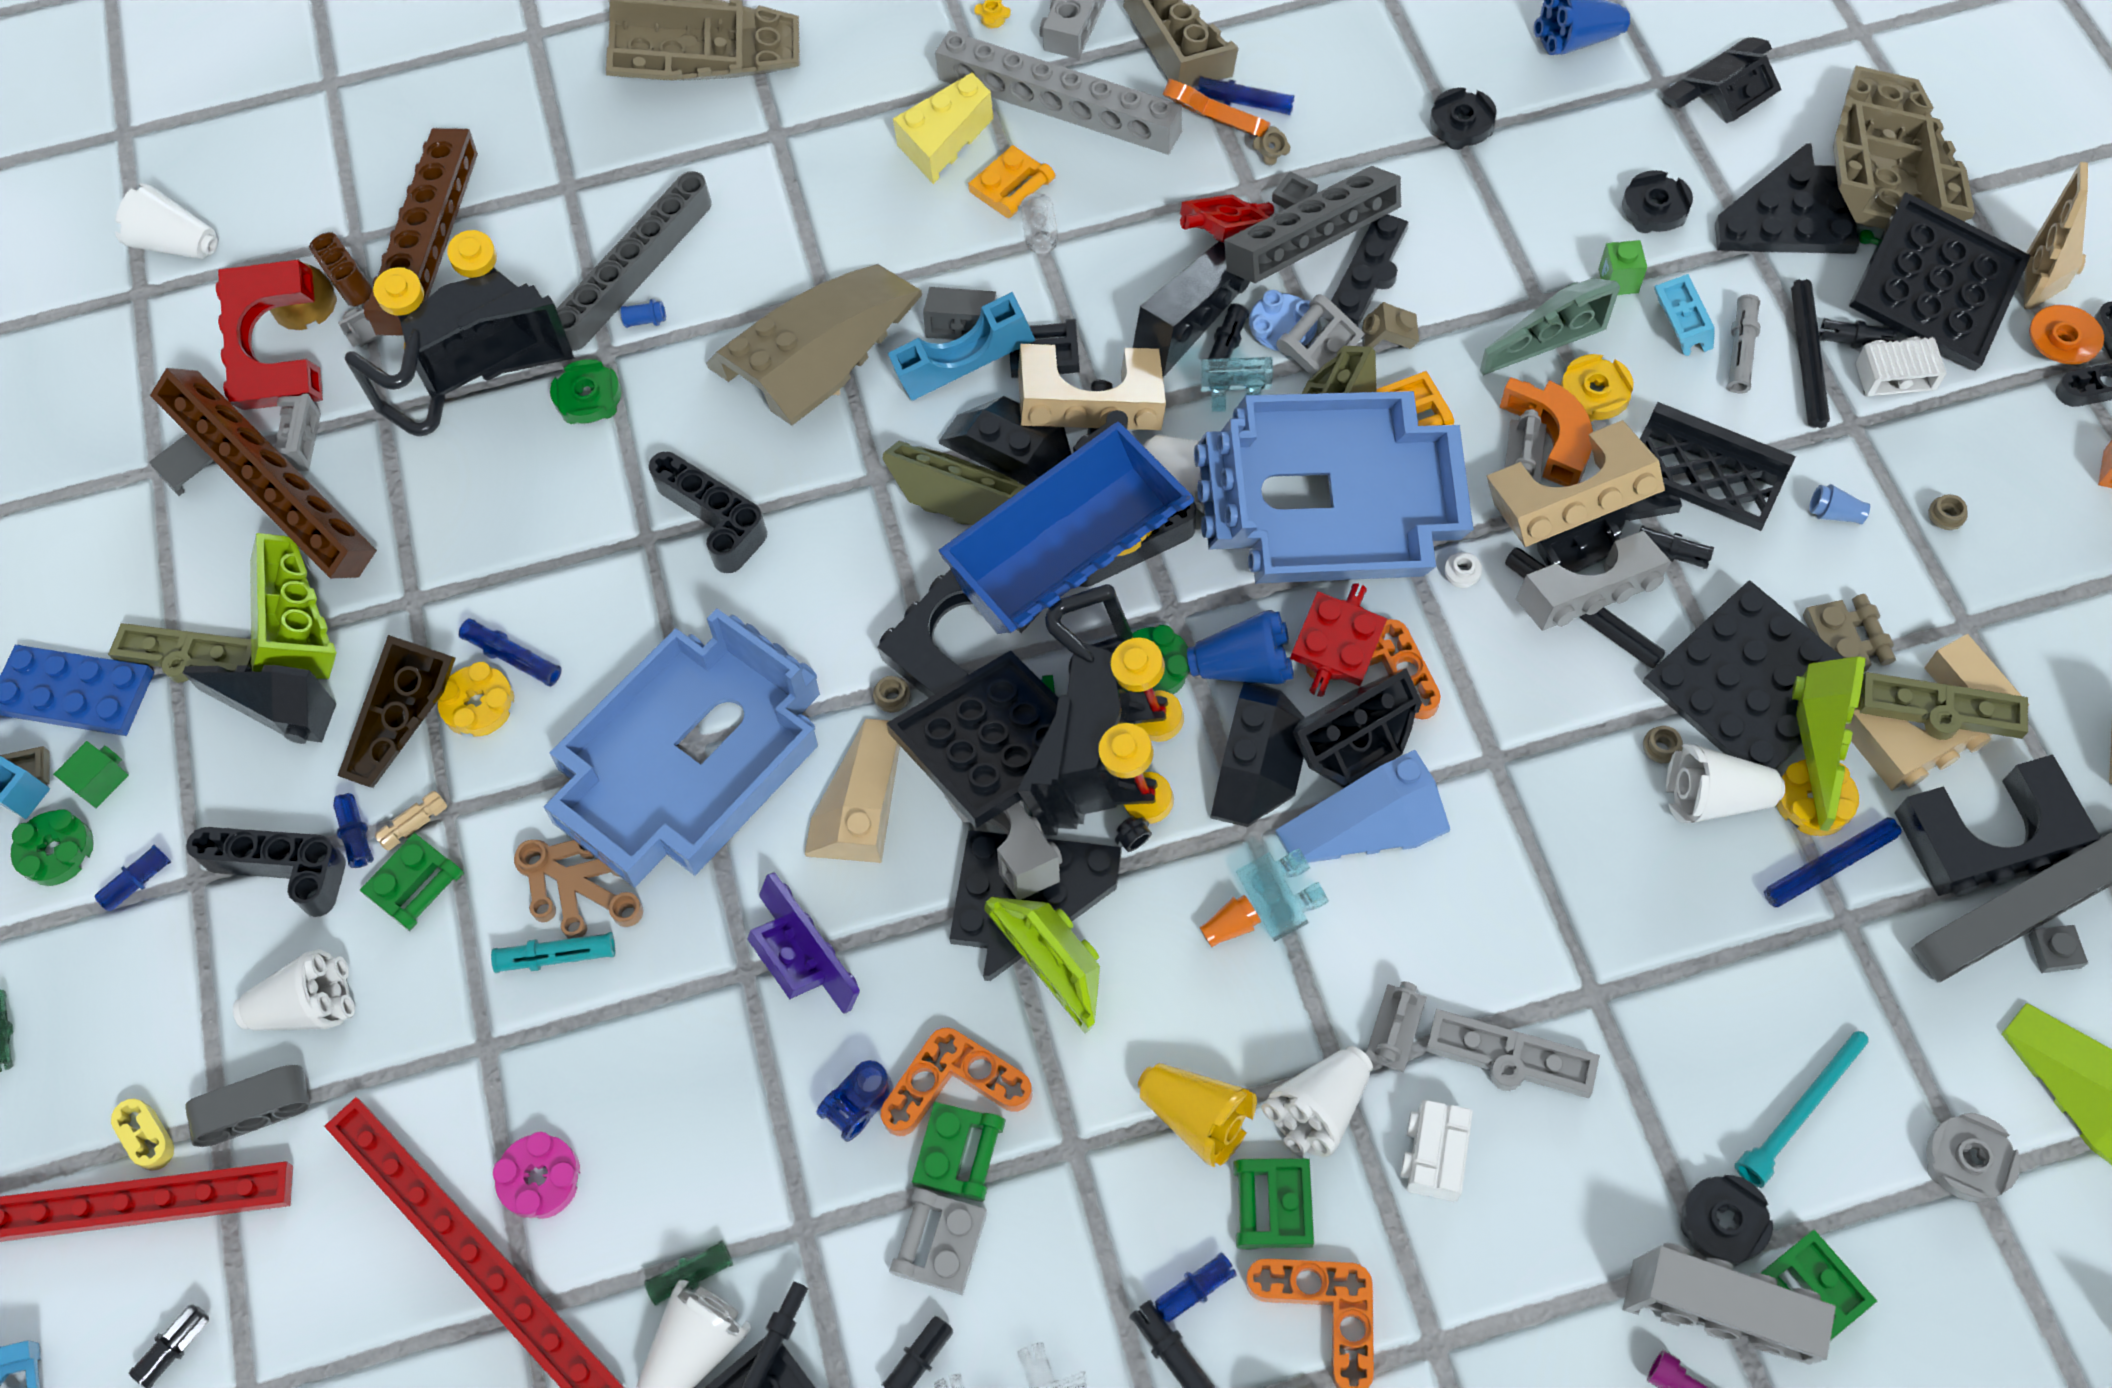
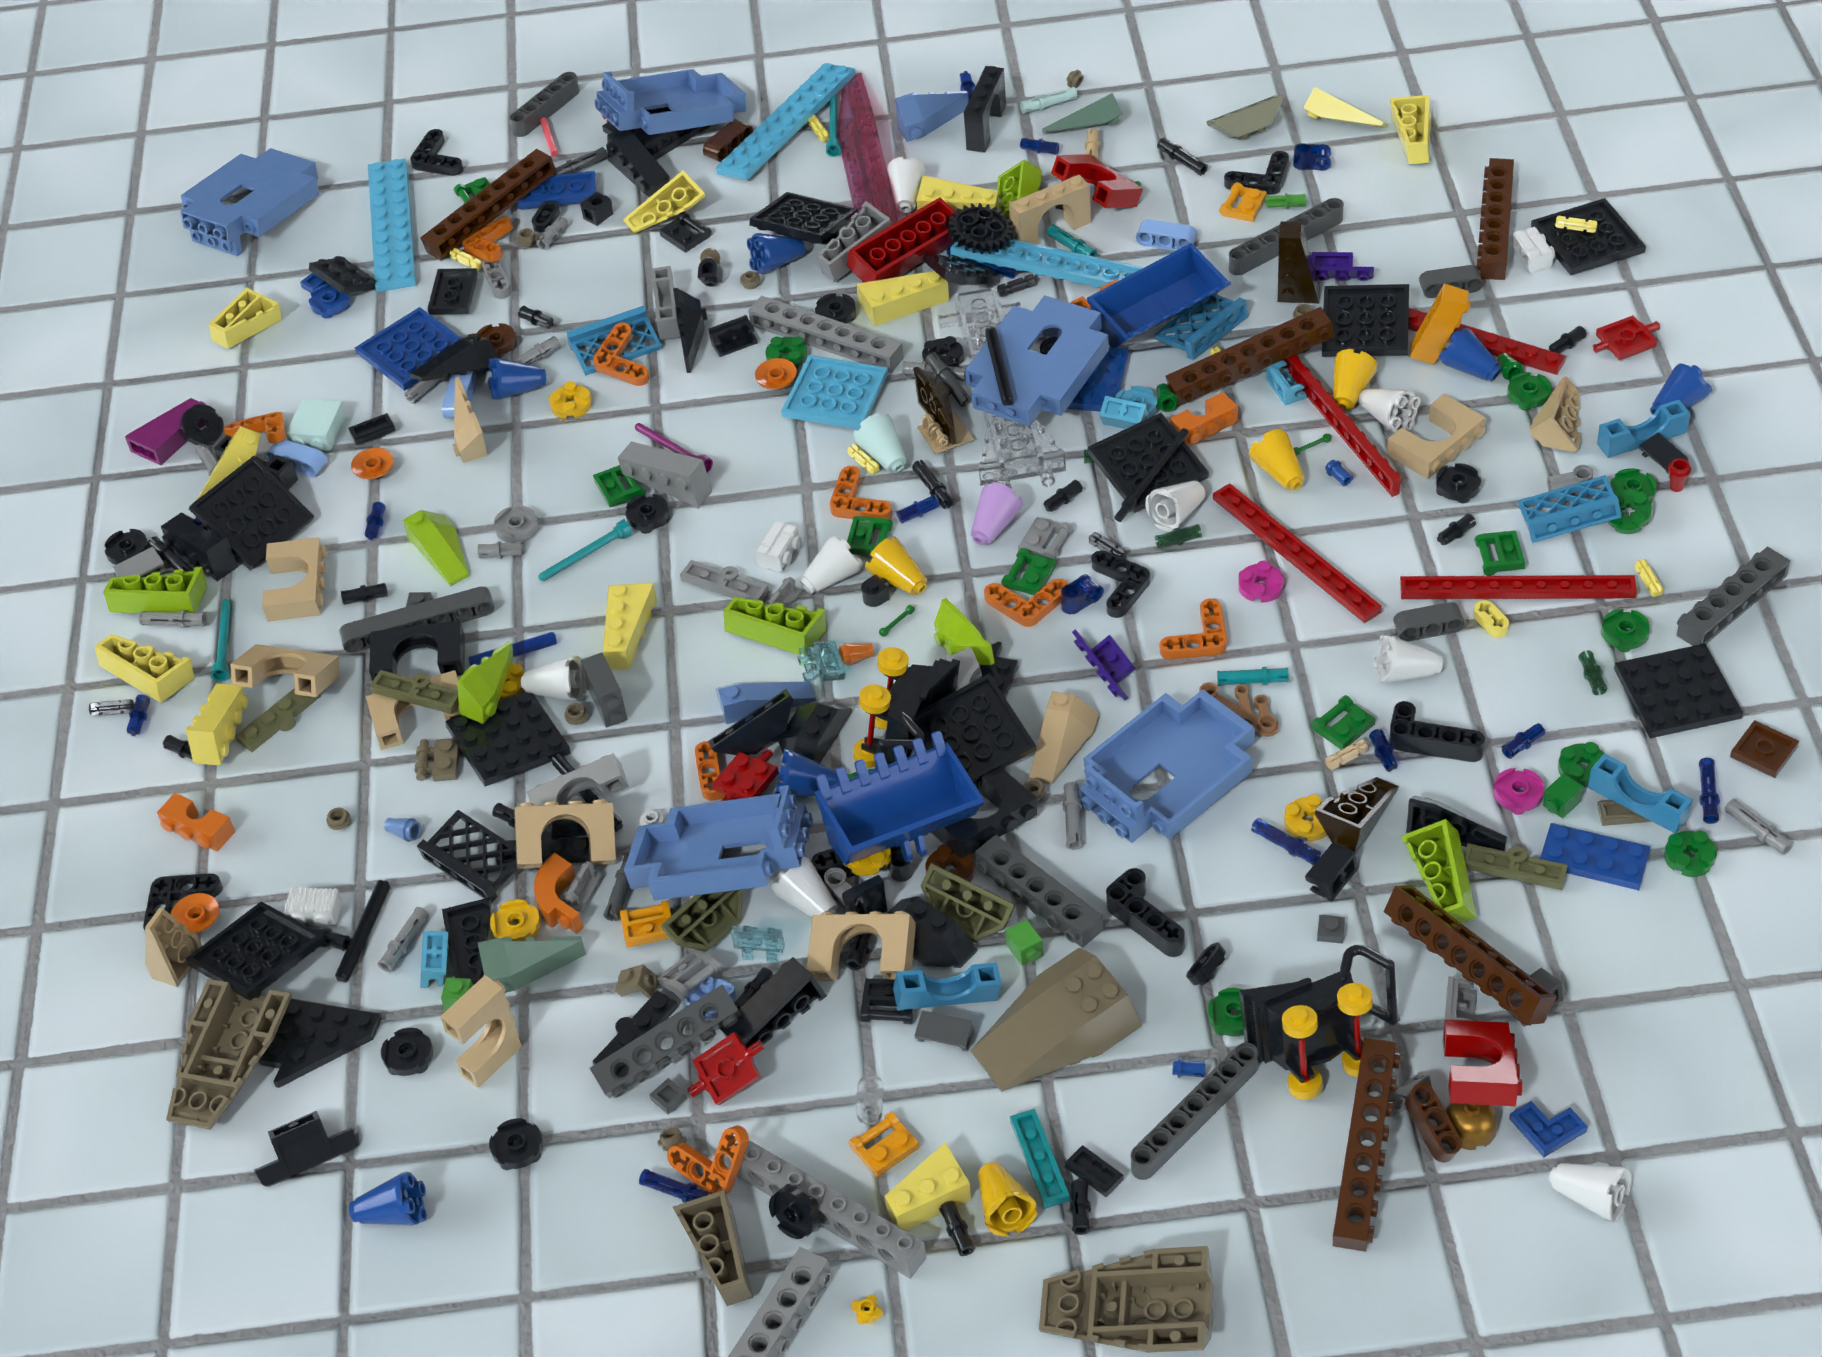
camera: 170 degrees left, 15 degrees down
(83, 1297) = (1507, 551): none -> green plate
(173, 793) = (1518, 801): none -> dark pink plate
(194, 298) = (1547, 1134): none -> blue plate
(442, 605) = (1332, 871): none -> black hinge
(454, 530) = (1330, 929): none -> dark grey plate
(620, 449) = (1206, 963): none -> black plate
(628, 1039) = (1208, 636): none -> orange beam
(752, 181) = (1094, 1170): none -> black plate
(765, 141) = (1080, 1207): none -> black pin
(772, 1148) = (1138, 581): none -> black beam
(787, 486) = (1039, 891): none -> dark grey brick
(819, 186) = (1039, 1159): none -> teal plate
(820, 1233) = (1106, 545): none -> axle
(827, 662) = (1072, 815): none -> light grey pin
(852, 122) = (1004, 1201): none -> yellow cone
(867, 441) = (1024, 942): none -> bright green brick
(897, 89) = (957, 1228): none -> black pin
(1040, 1273) = (994, 512): none -> lavender cone
(1094, 64) = (791, 1201): none -> black plate
(1195, 985) = (909, 610): none -> green hinge
(1230, 1062) = (875, 591): none -> black plate
(1381, 949) = (774, 623): none -> lime wedge
(1469, 444) = (618, 893): none -> dark grey pin
(1551, 182) = (500, 1039): none -> tan arch
(1628, 764) = (604, 690): none -> dark grey brick
(1652, 353) = (466, 927): none -> black wing
(1657, 934) = (626, 616): none -> light yellow wedge
(1972, 1089) = (499, 549): none -> light grey axle

